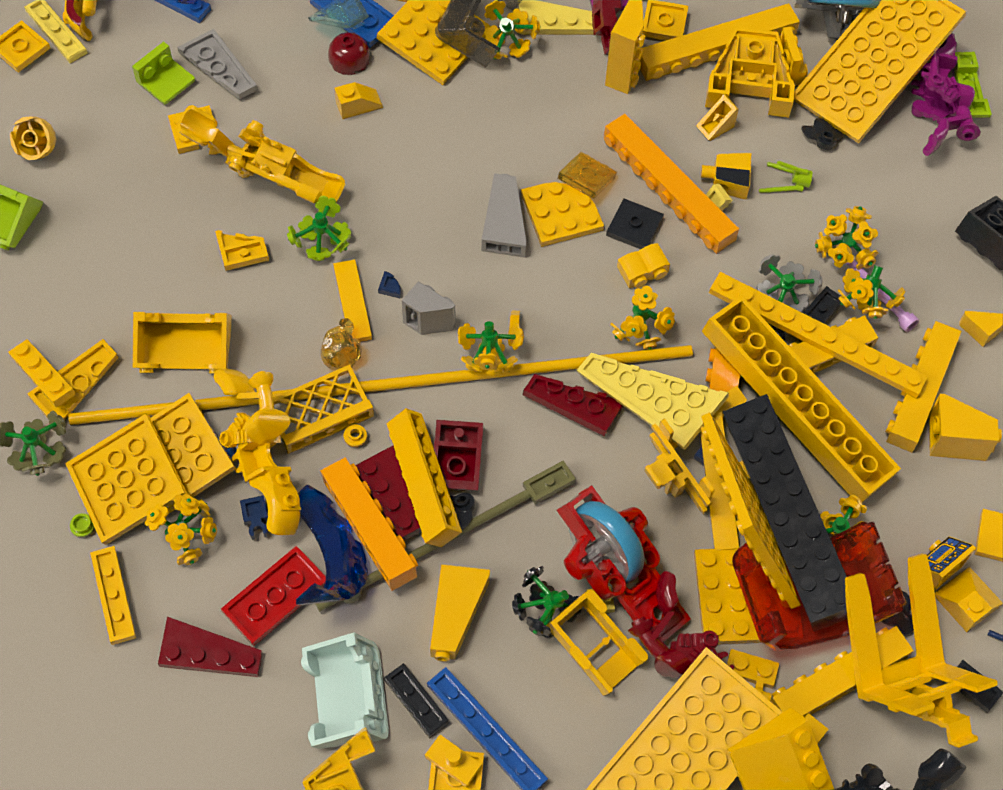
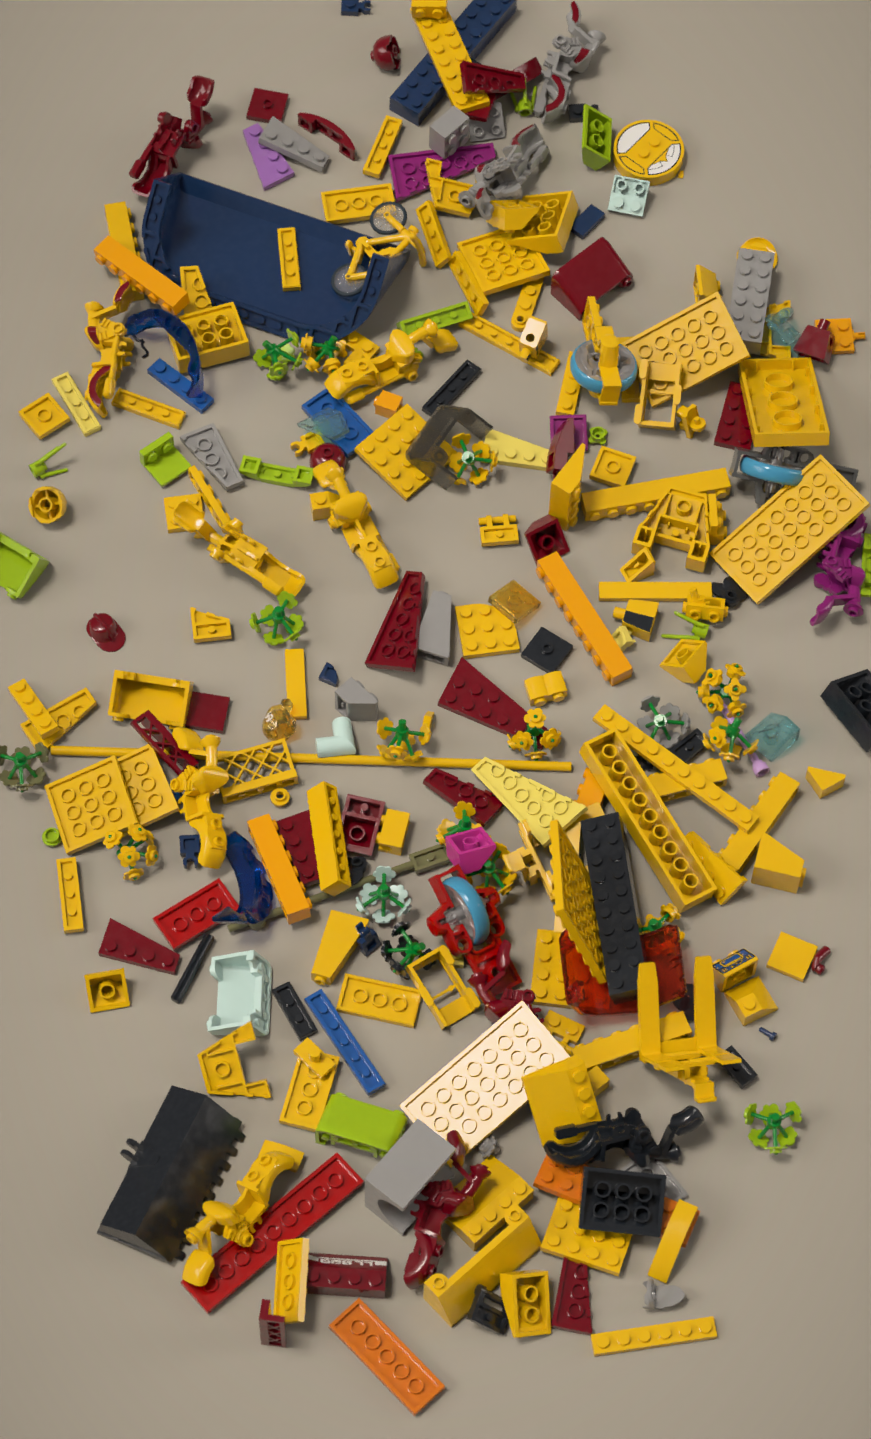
camera: 10 degrees right, 0 degrees up
(19, 100) = (39, 467): none -> lime plant
(119, 272) = (105, 632): none -> dark red piece
(138, 24) = (148, 408): none -> yellow tile
(174, 712) = (107, 990): none -> yellow slope
(206, 387) = (165, 740): none -> dark red fence
(221, 111) = (214, 505): none -> yellow plate
(253, 348) = (207, 712): none -> dark red tile
(279, 665) = (192, 968): none -> black axle
(292, 75) = (276, 474): none -> lime slope
(322, 37) = (308, 443): none -> yellow plate
(387, 104) = (360, 532): none -> yellow piece
(417, 360) = (340, 743): none -> light aqua brick
(463, 229) = (399, 633): none -> dark red wing
(493, 595) = (369, 939): none -> dark blue plate
(499, 457) = (393, 832): none -> yellow brick
(513, 533) = (372, 893): none -> light aqua plant
(519, 670) = (379, 1000): none -> yellow tile
(553, 106) = (500, 534): none -> yellow plate
(570, 290) = (483, 702): none -> dark red wing
(590, 443) = (462, 811): none -> yellow plant
(599, 465) = (469, 849): none -> dark pink slope
(609, 101) = (546, 537): none -> dark red slope
(617, 483) = (489, 869): none -> plant
(746, 142) = (651, 591): none -> yellow tile
(796, 212) = (686, 660): none -> yellow slope
(802, 152) = (704, 607): none -> yellow brick
(902, 450) = (721, 873): none -> yellow wing
(918, 278) = (774, 735): none -> clear light blue slope

